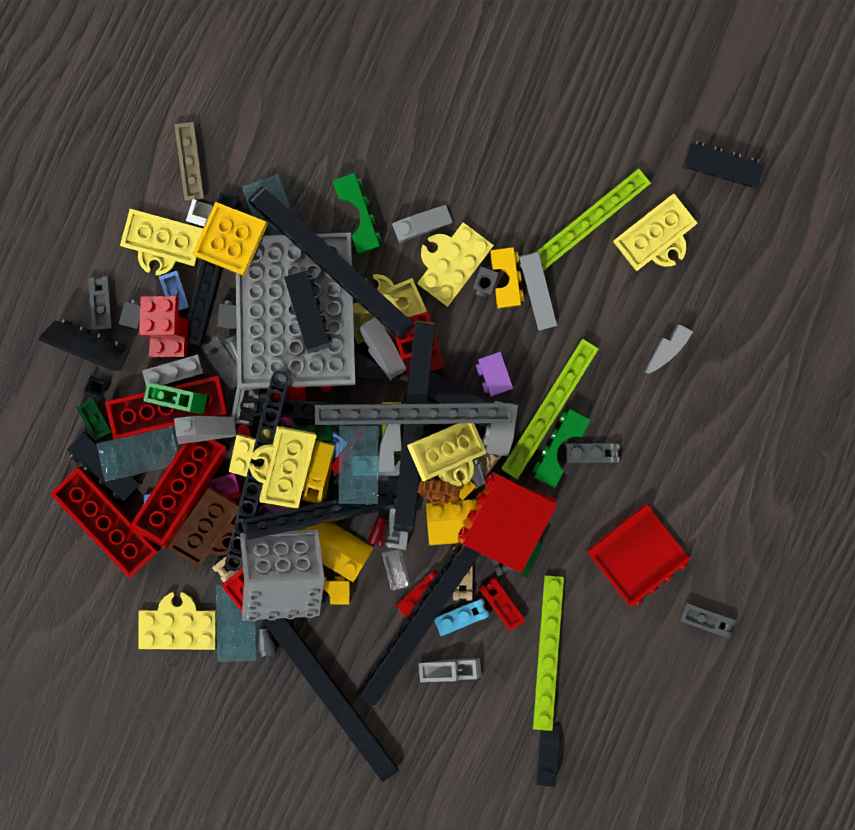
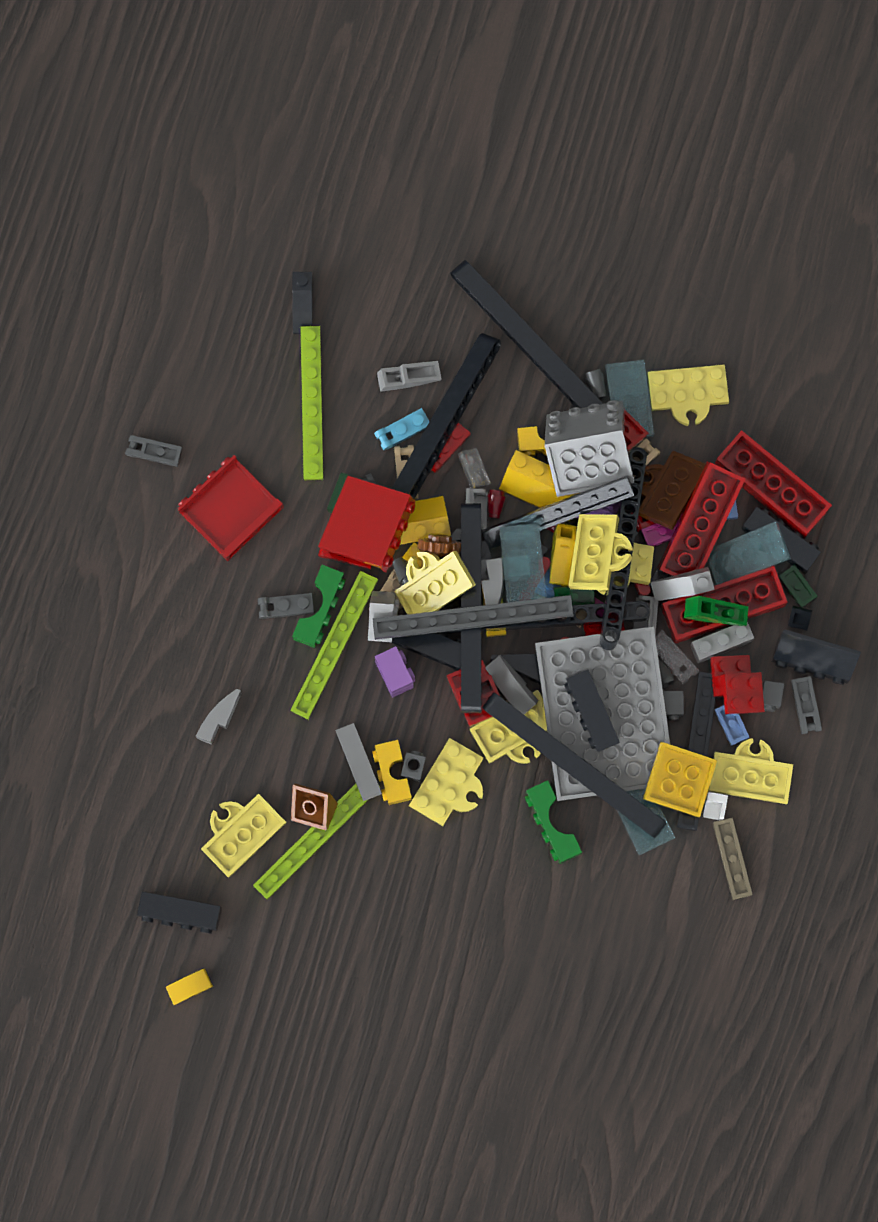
camera: 175 degrees right, 10 degrees down
(421, 223) = (485, 819): light grey slope -> none
(502, 605) = (362, 445): red plate -> none
(586, 250) = (312, 807): none -> dark orange slope
(720, 93) = (189, 986): none -> yellow slope

